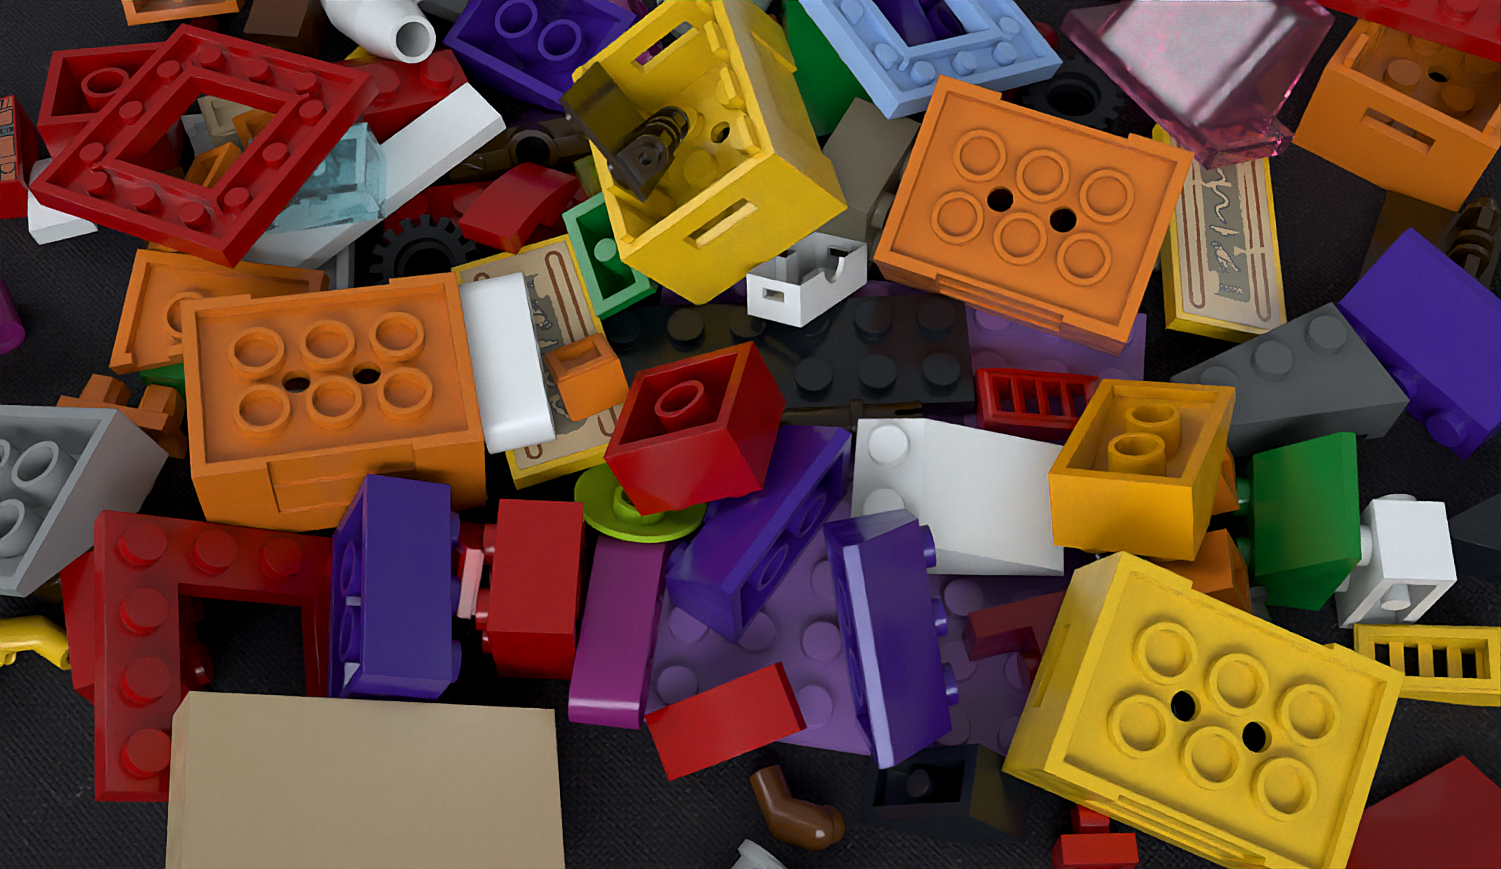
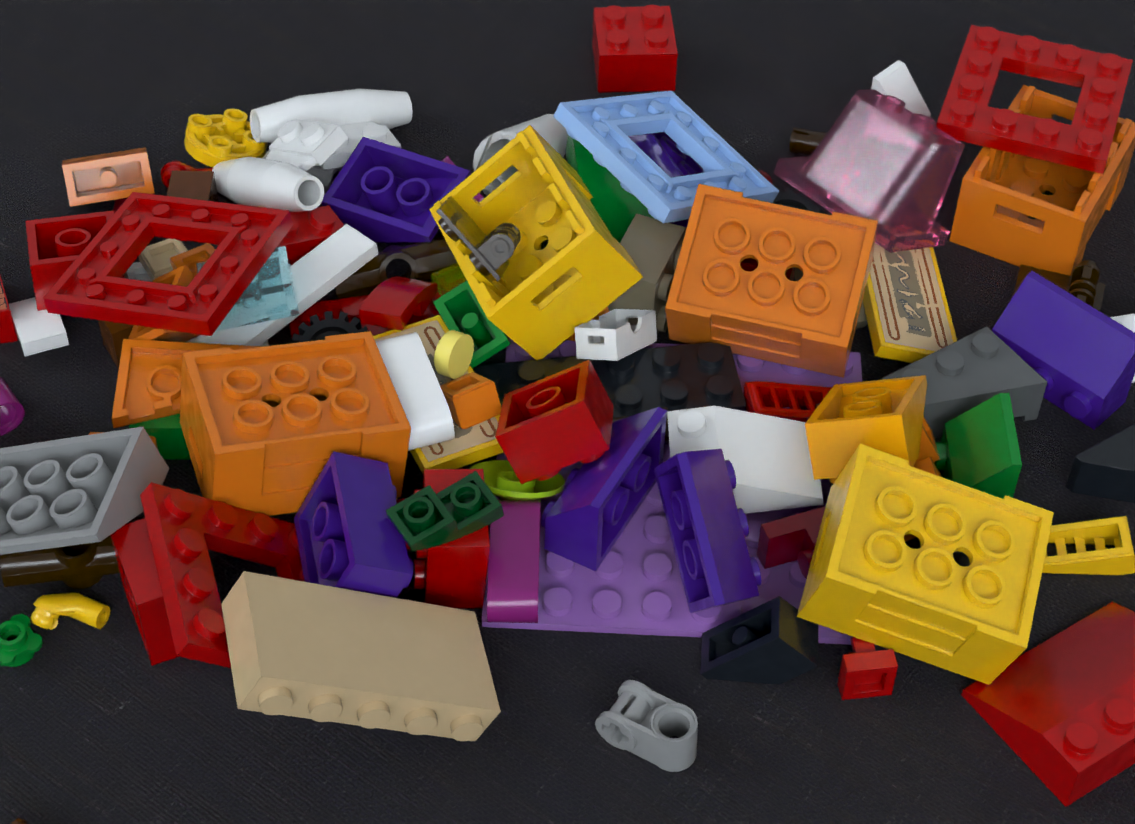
camera: 10 degrees left, 15 degrees down
(512, 585) = (438, 518): none -> dark green slope
(572, 306) = (453, 354): none -> light yellow tile
(725, 721) = (597, 610): red slope -> none
(792, 819) = (657, 674): reddish brown arm -> none
(1402, 565) = (1051, 472): white brick -> none

